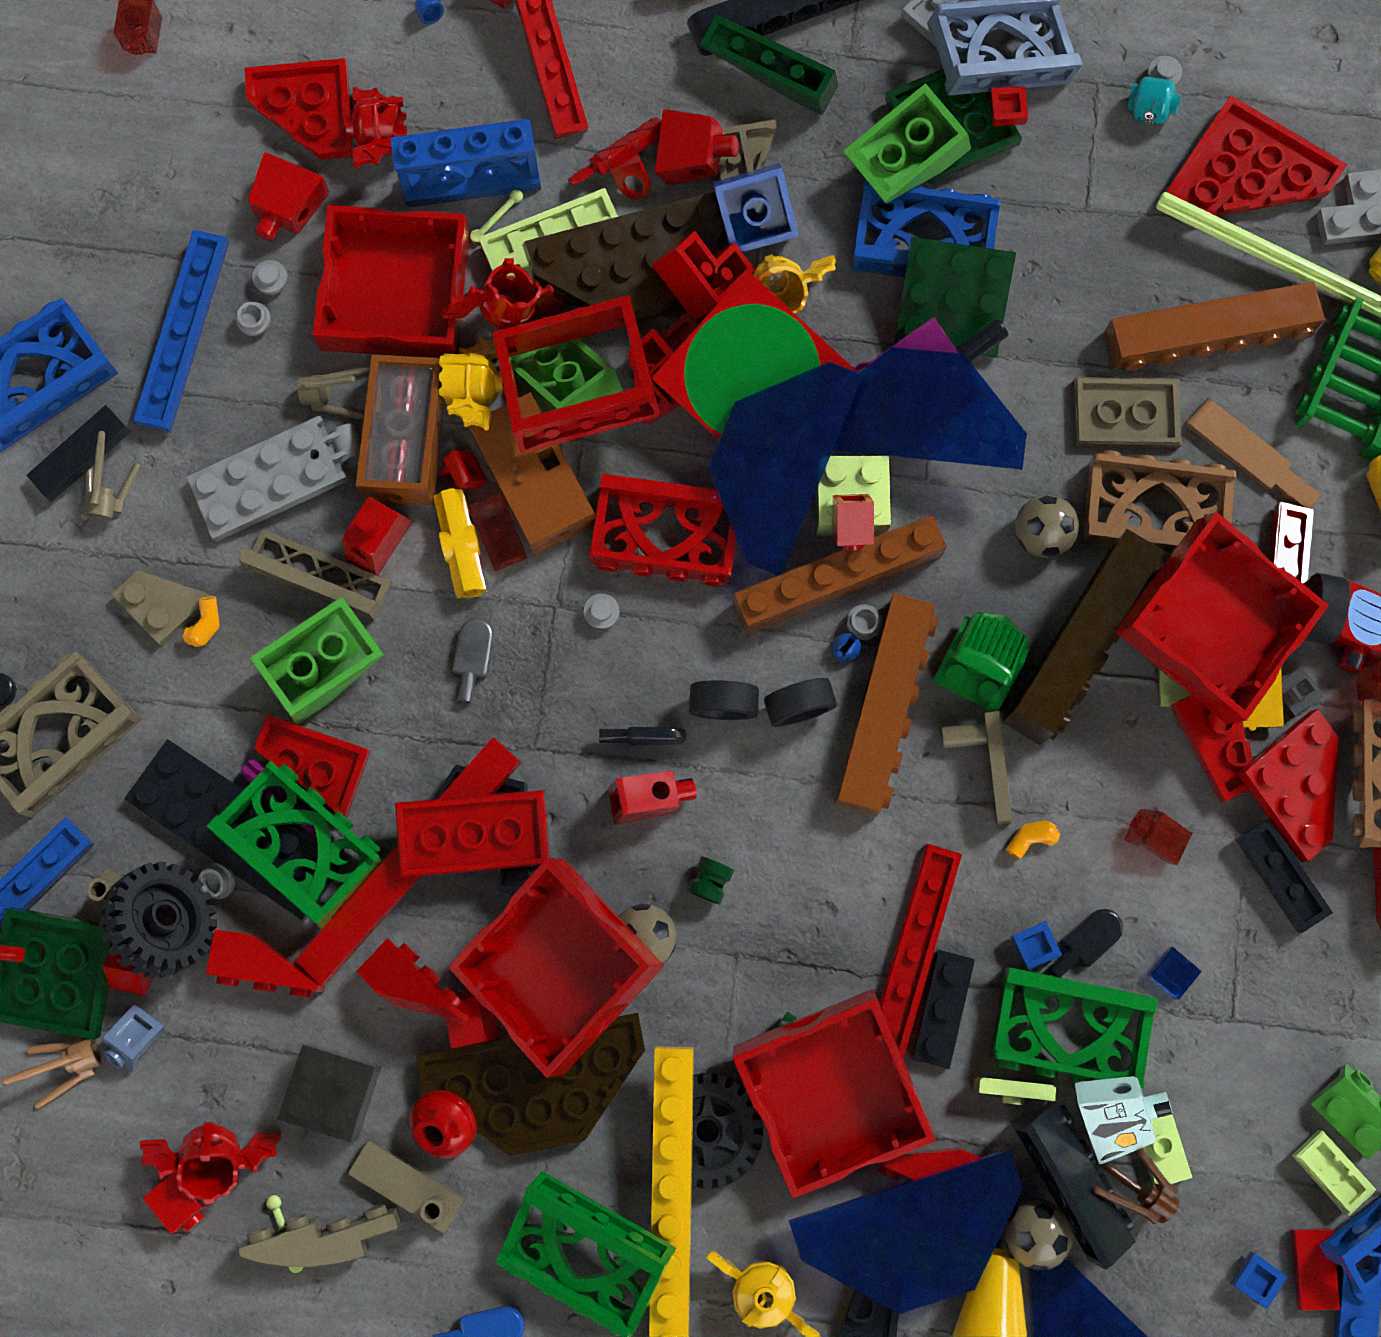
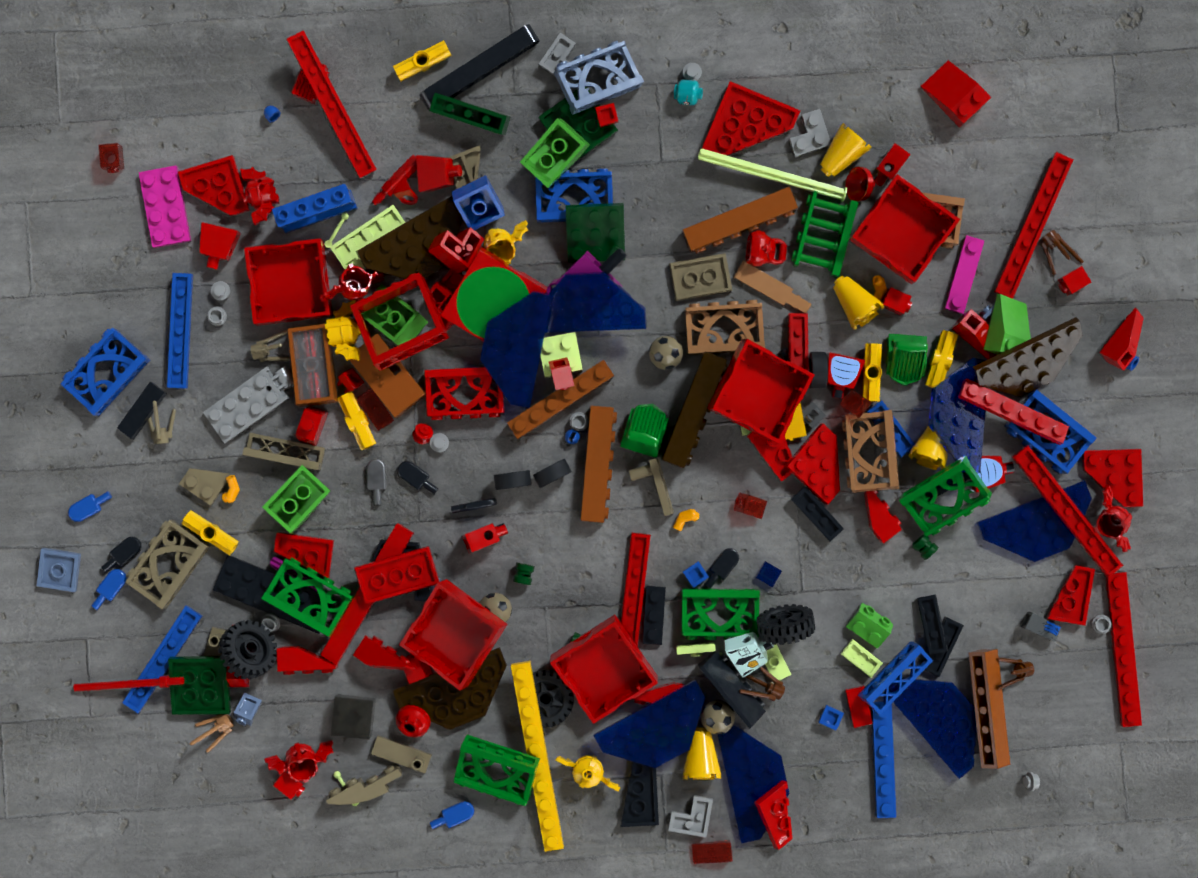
camera: 10 degrees left, 10 degrees up
(131, 678) = (200, 525): none -> yellow piece
(208, 124) = (164, 206): none -> dark pink plate
(545, 665) = (415, 476): none -> black piece
(574, 588) = (422, 433): none -> red wheel
(1203, 1073) = (785, 624): none -> black wheel
(1246, 383) = (762, 249): none -> red piece

